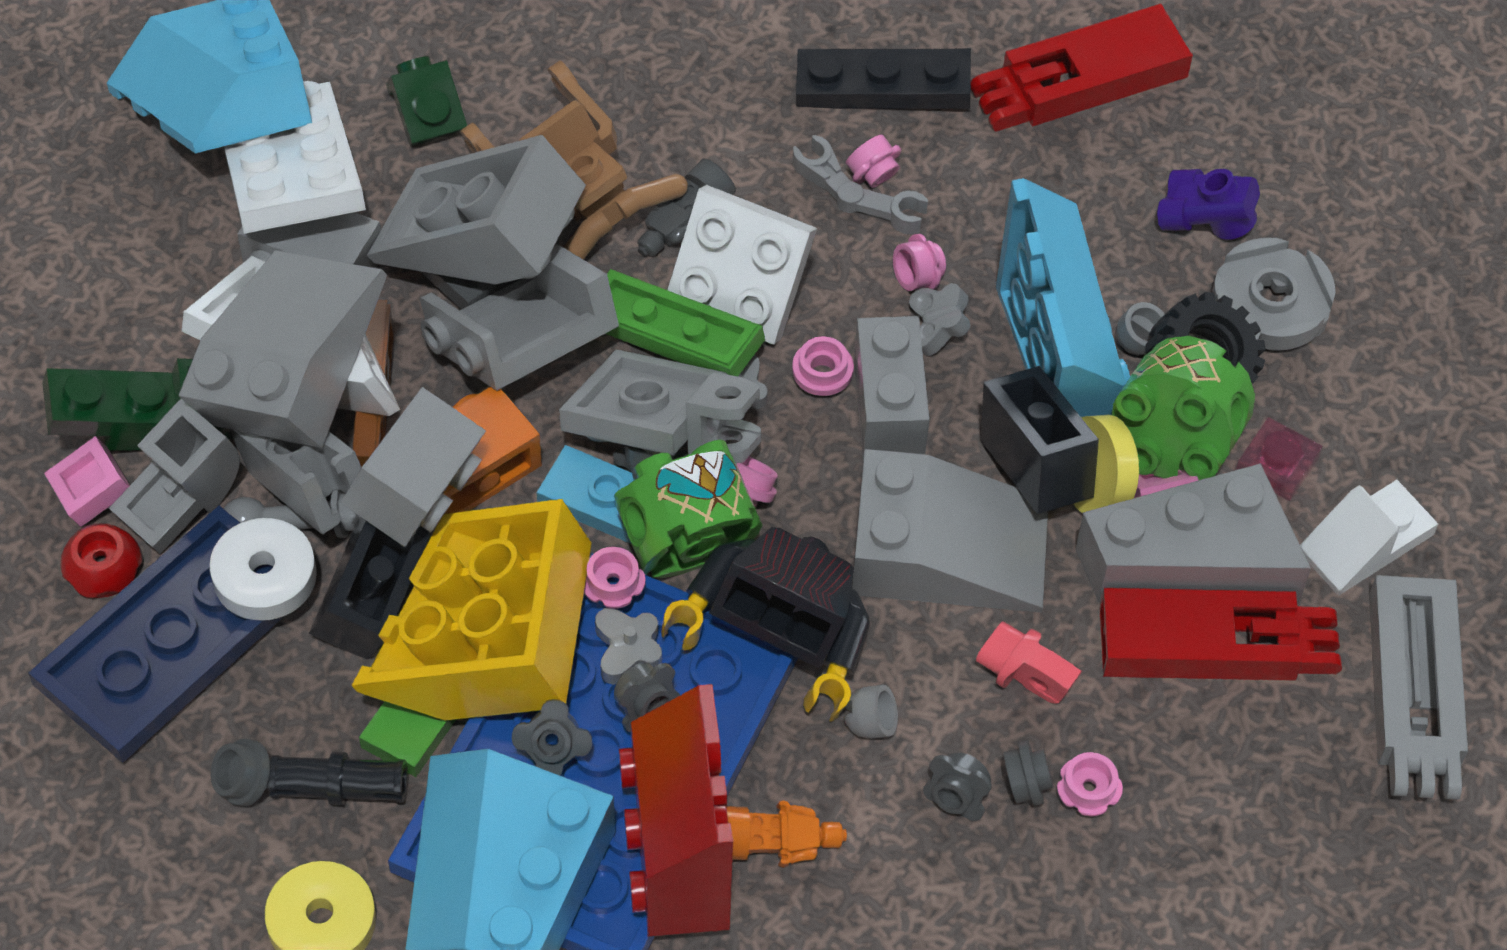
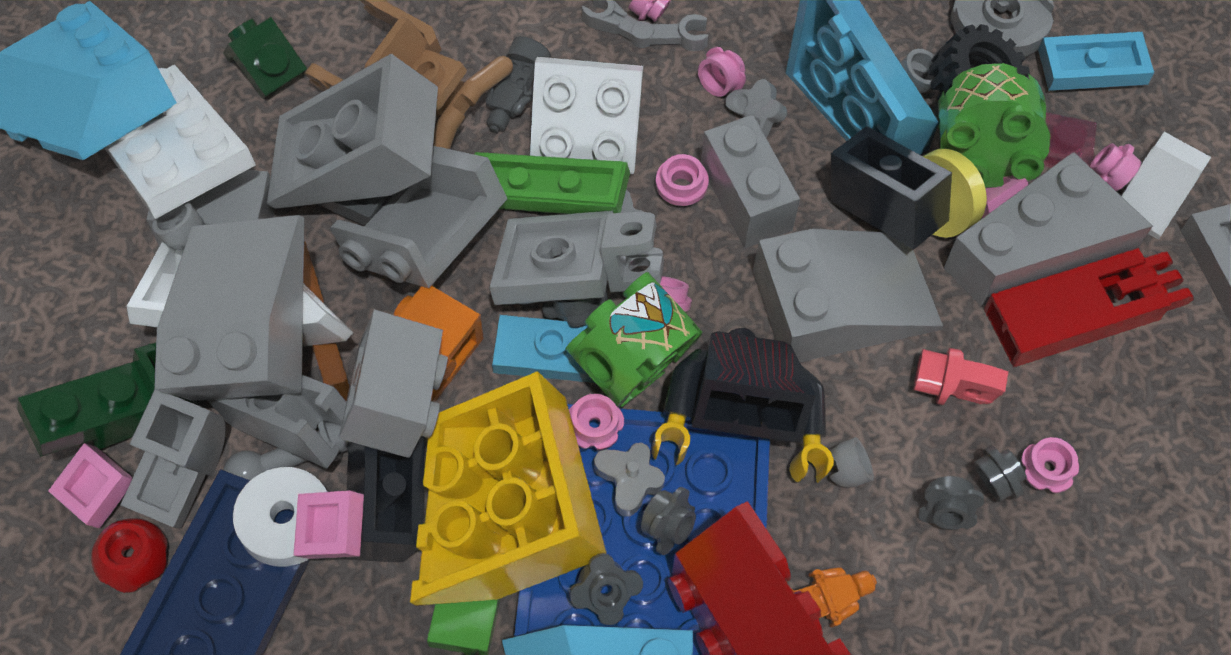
camera: 20 degrees left, 5 degrees up
(260, 245) = (175, 225): none -> light grey hinge
(300, 584) = (328, 525): none -> bright pink plate
(1314, 498) = (1116, 165): none -> bright pink plate
(1356, 378) = (1095, 61): none -> medium azure plate

